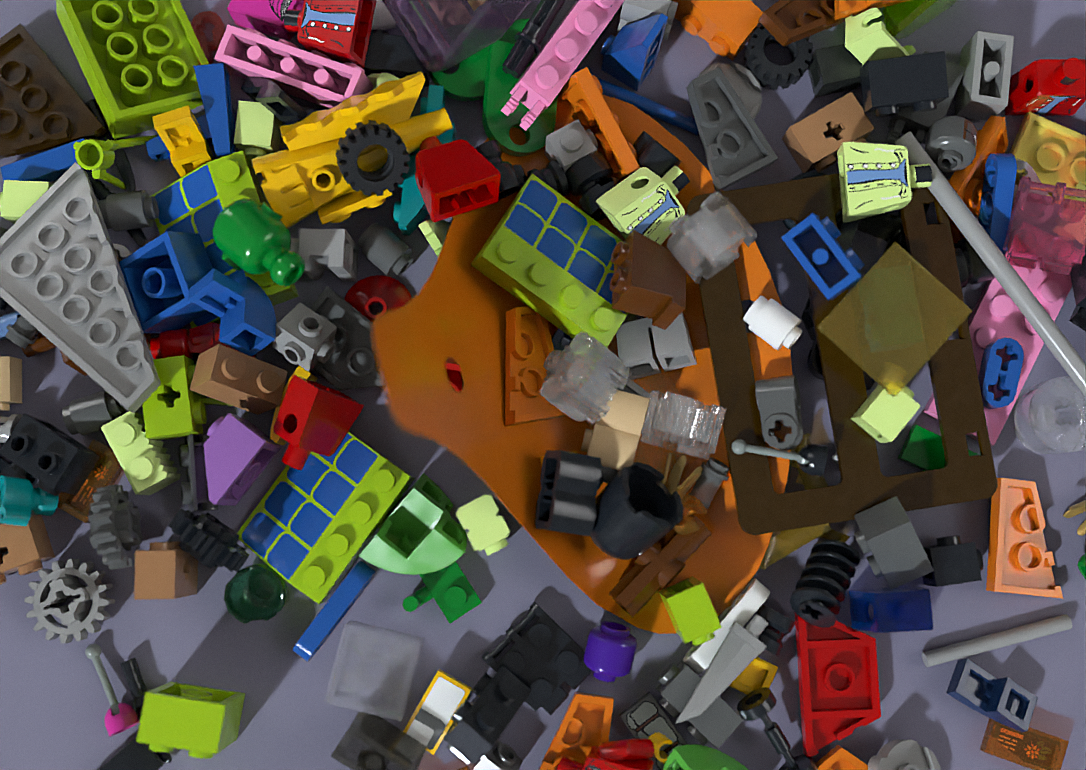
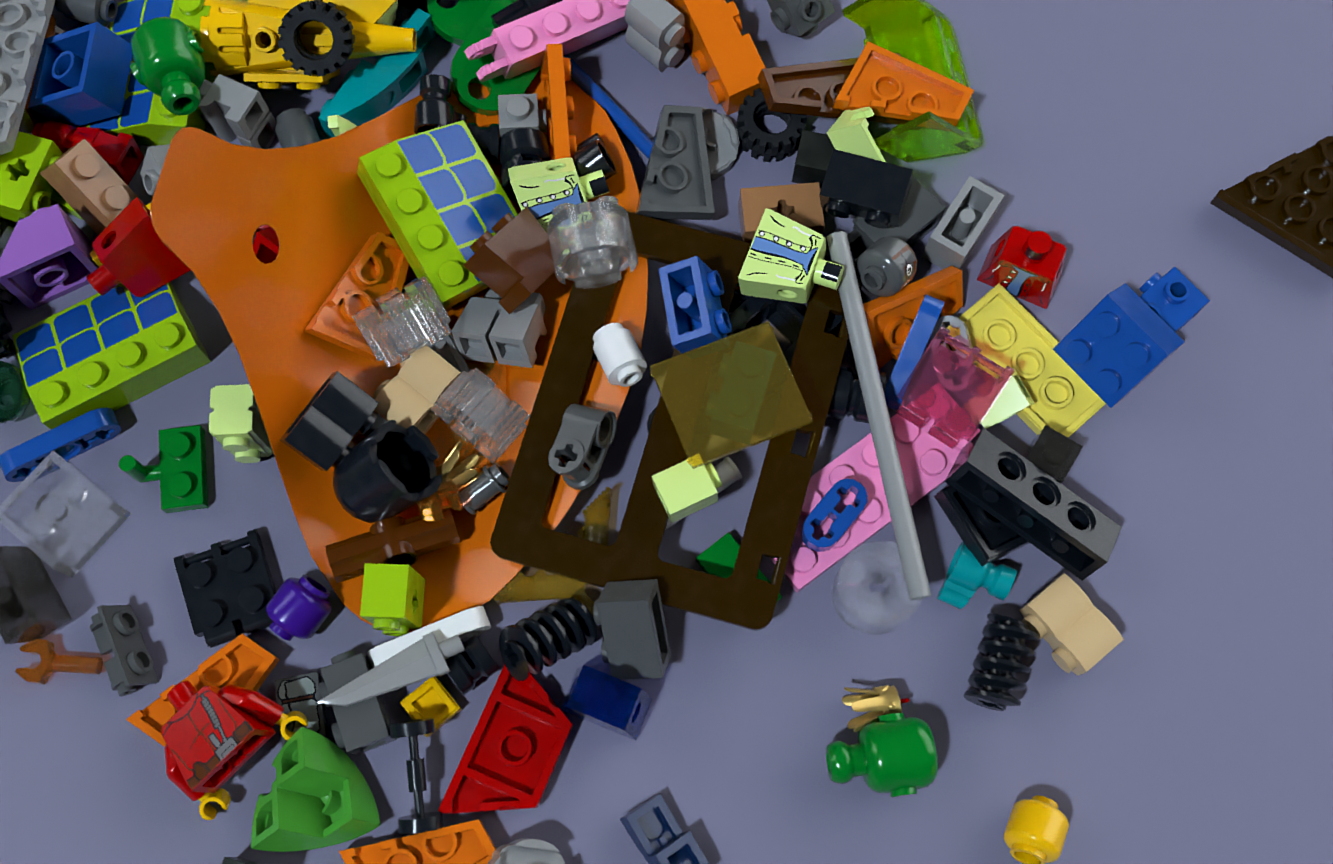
camera: 30 degrees right, 10 degrees down
(244, 310) = (128, 122): blue brick -> none
(417, 533) = (173, 406): bright green brick -> none
(434, 712) = (100, 584): slope -> none
(454, 178) = (384, 91): red torso -> none
(487, 716) = (139, 604): black brick -> none
(634, 50) = (627, 61): blue slope -> none
(810, 459) = (588, 503): hinge -> none
(953, 562) = (692, 684): black brick -> none
(996, 640) = (703, 793): light grey bar -> none
(1017, 543) = (774, 701): orange wing -> none

